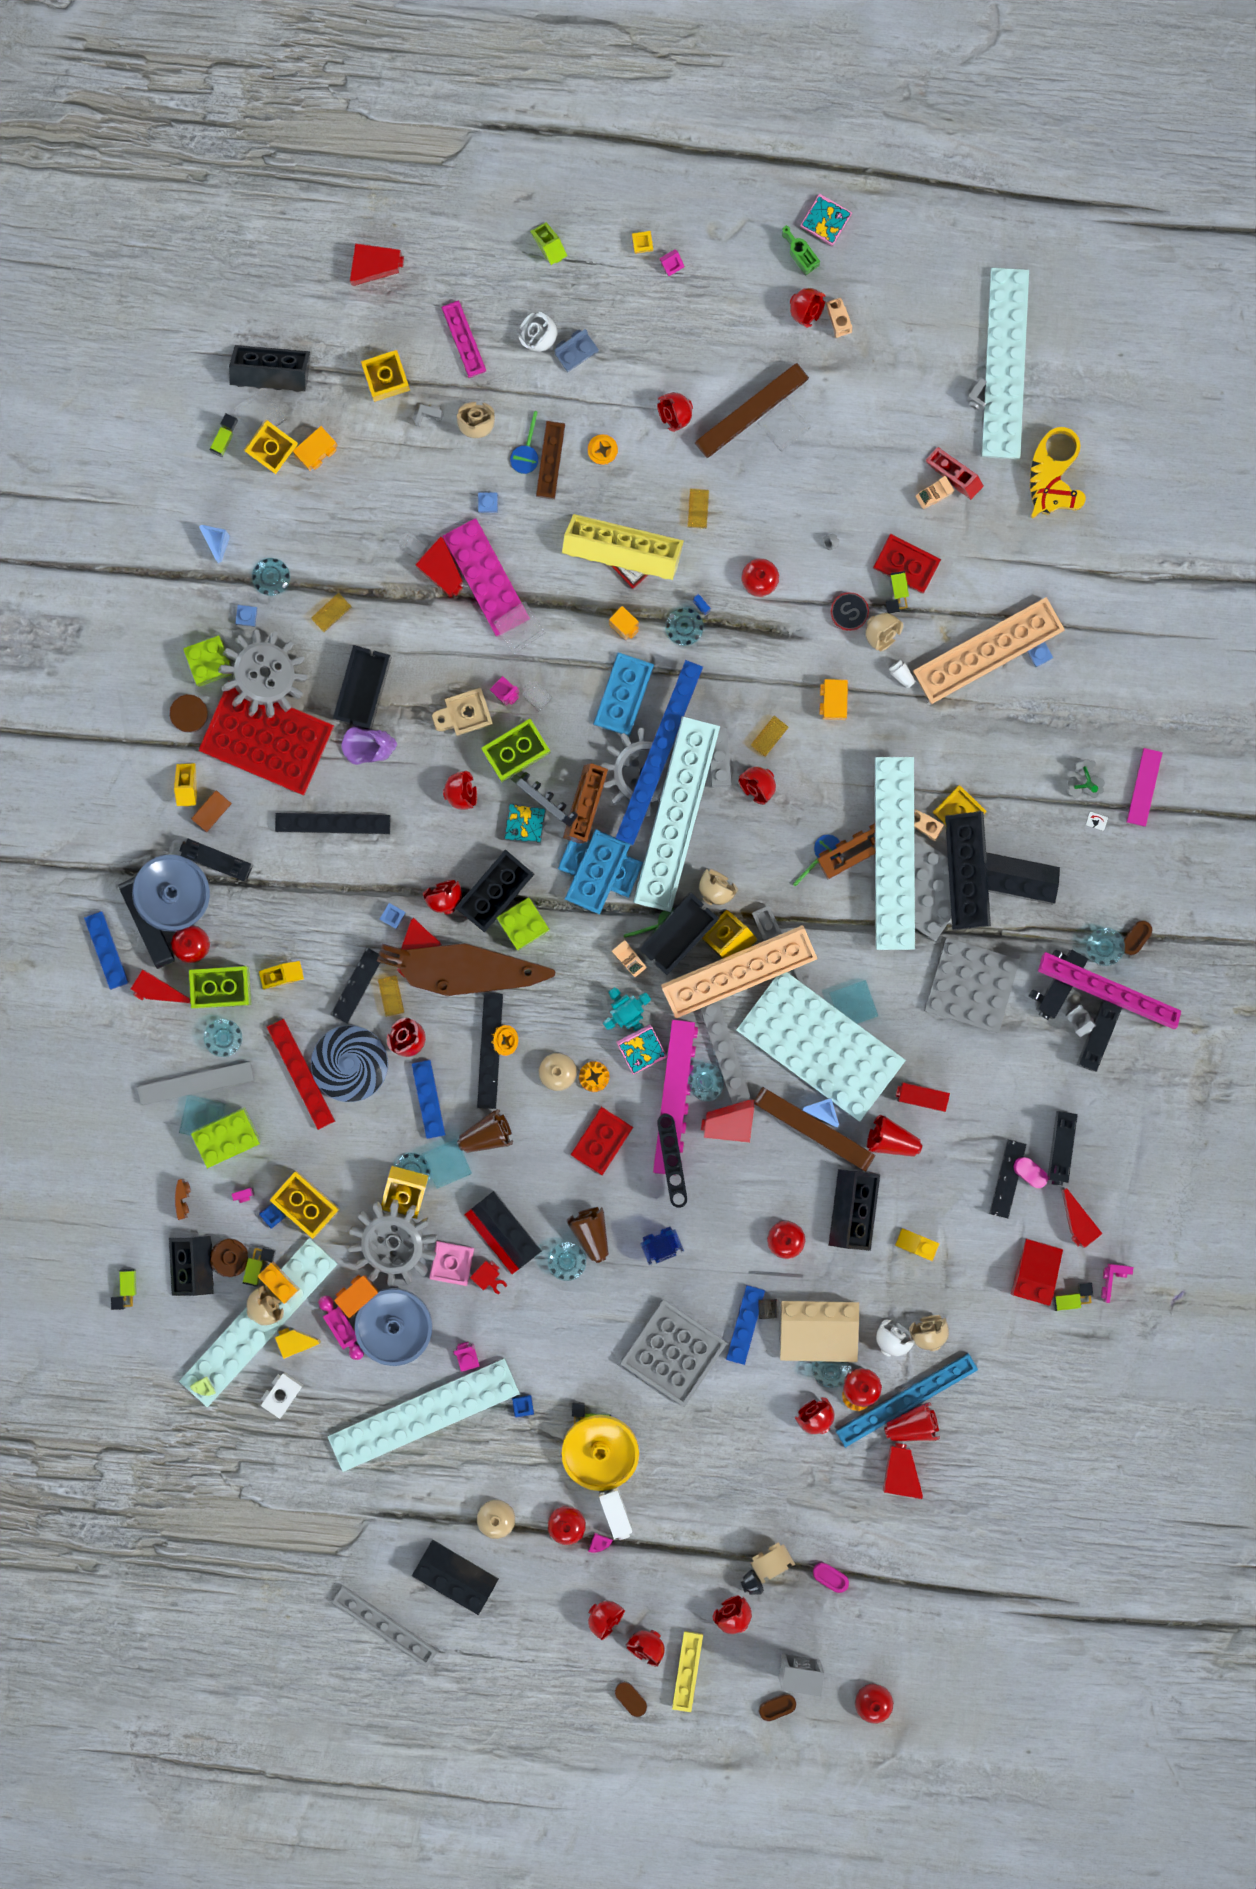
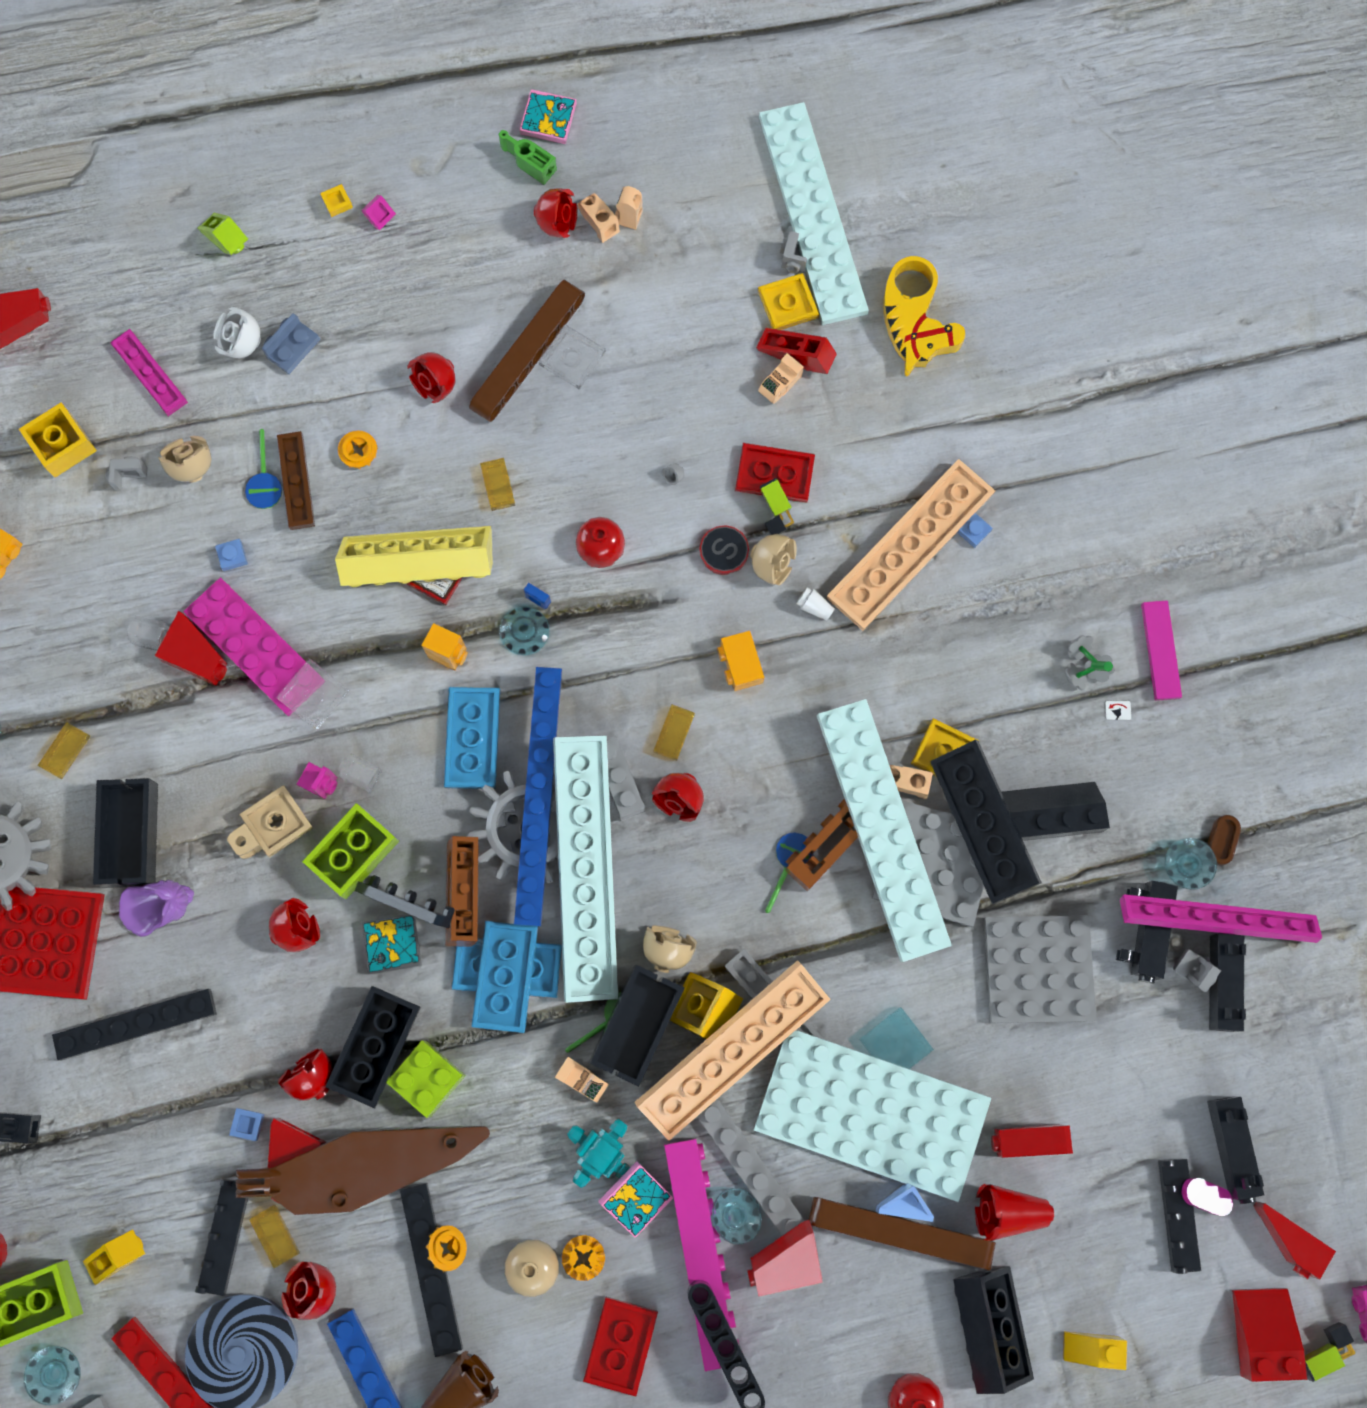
camera: 20 degrees left, 10 degrees down
(863, 319) = (629, 207): none -> light nougat leg
(961, 431) = (788, 302): none -> yellow tile

